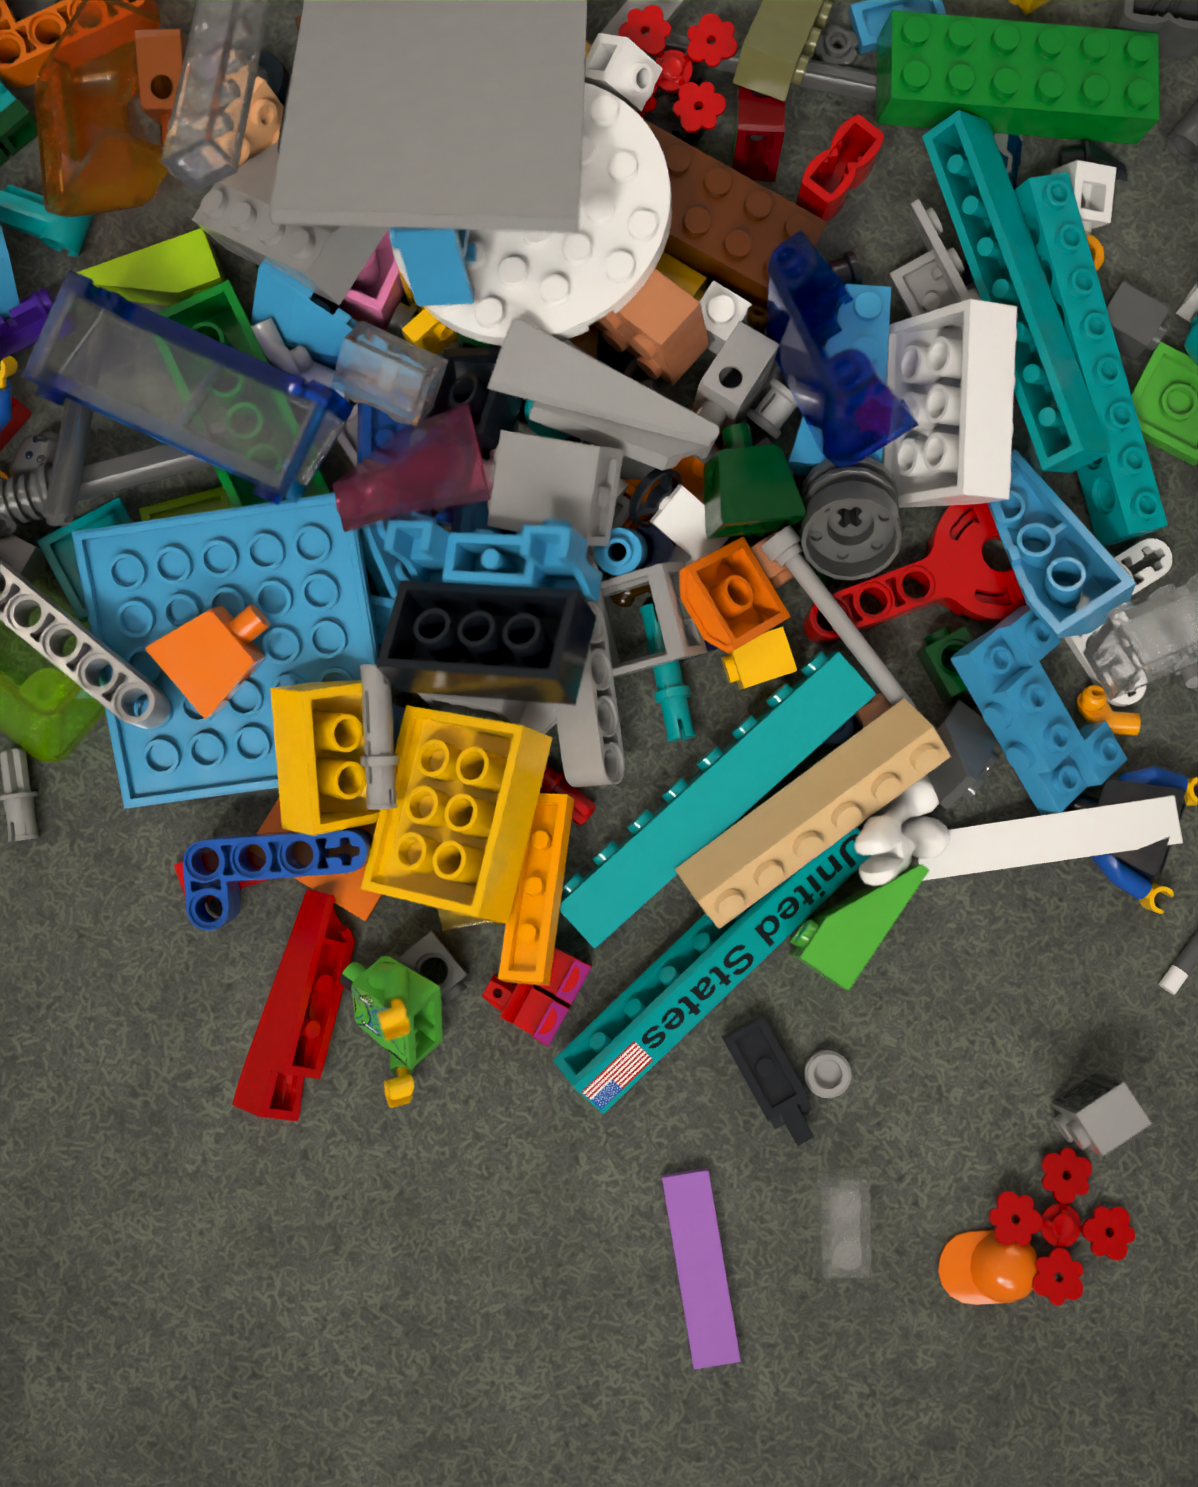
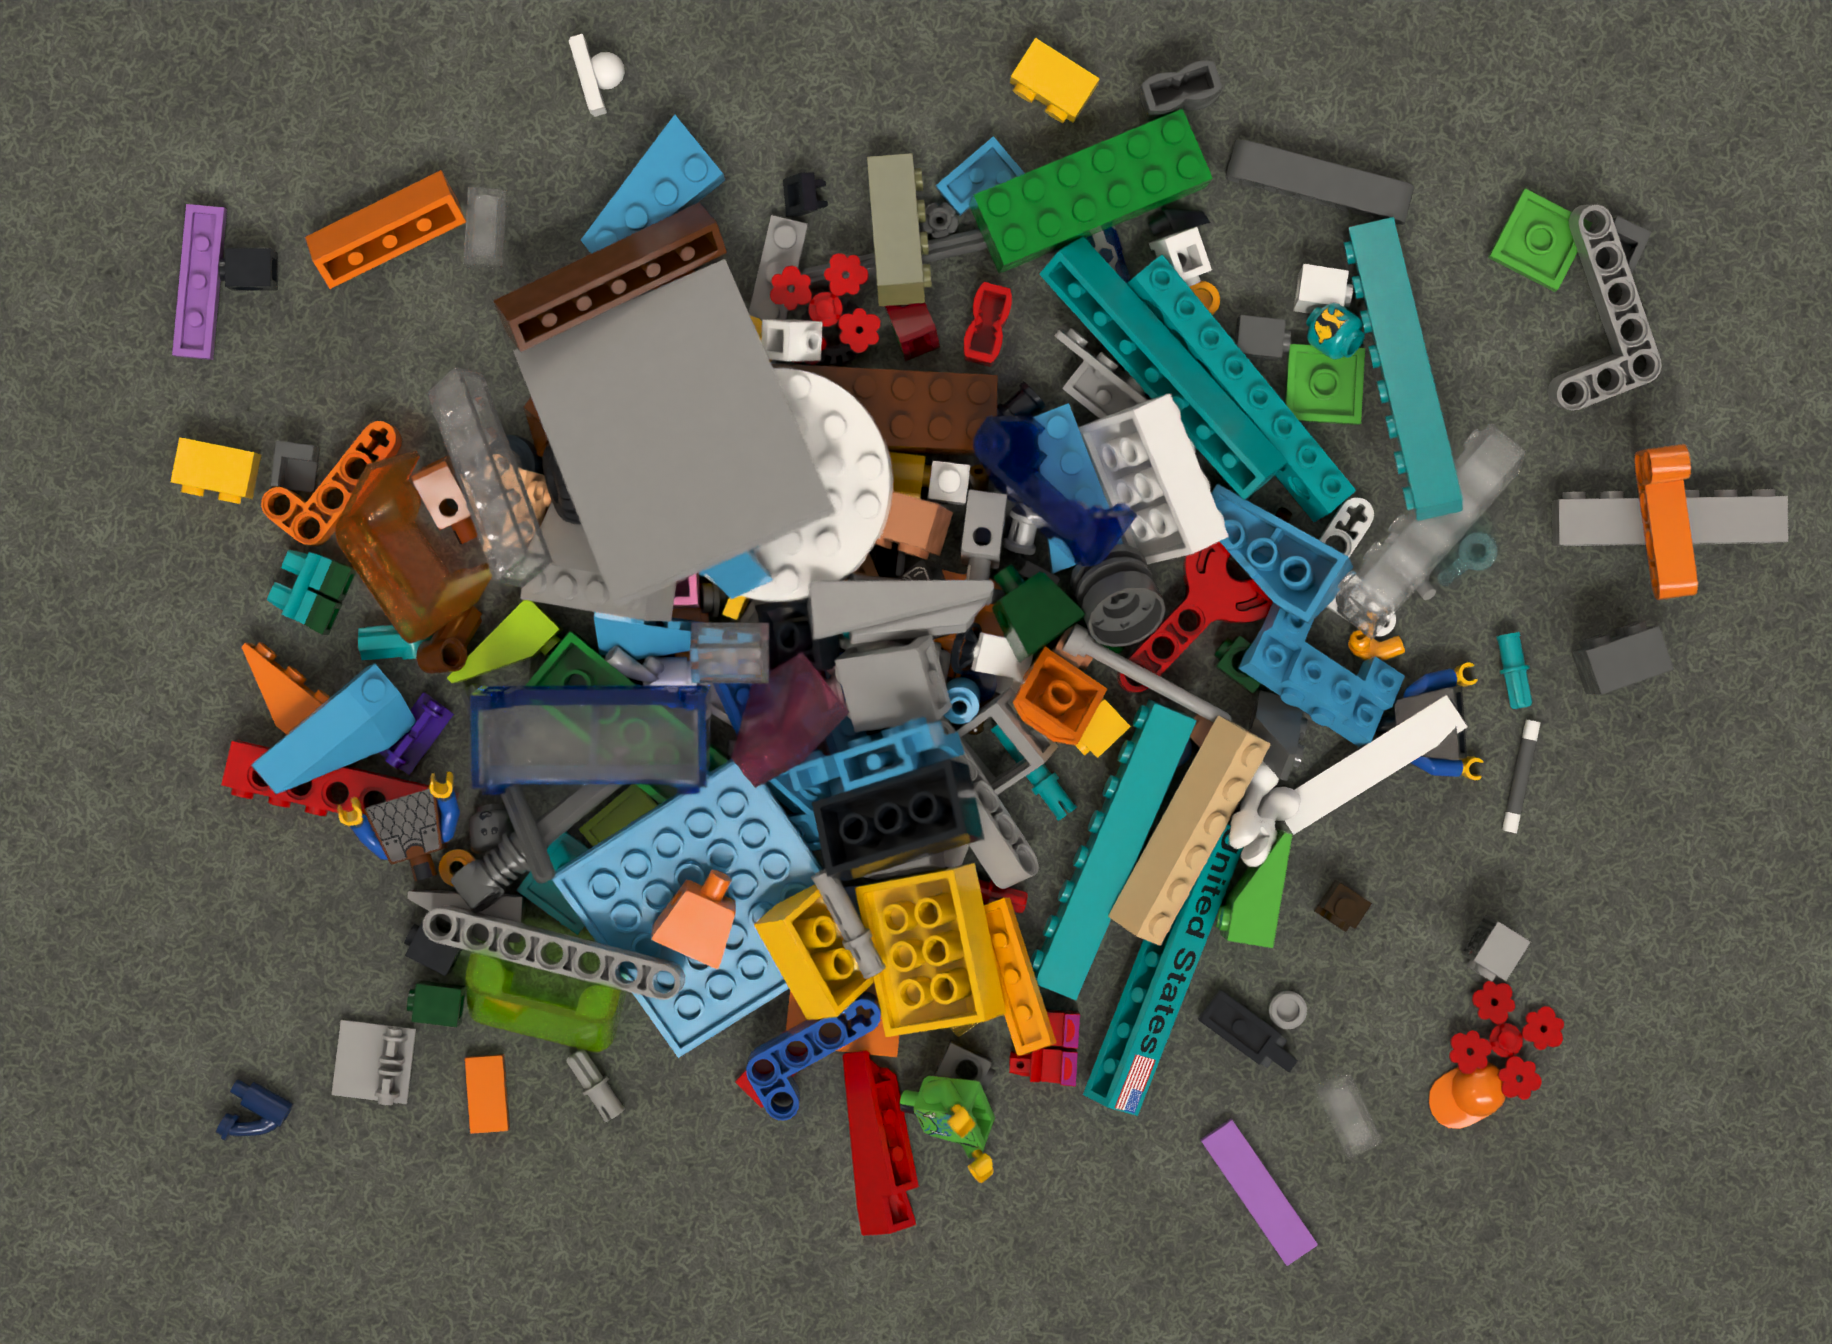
camera: 25 degrees left, 5 degrees up
(101, 238) = (448, 645): none -> reddish brown piece
(943, 985) = (1342, 906): none -> dark brown brick

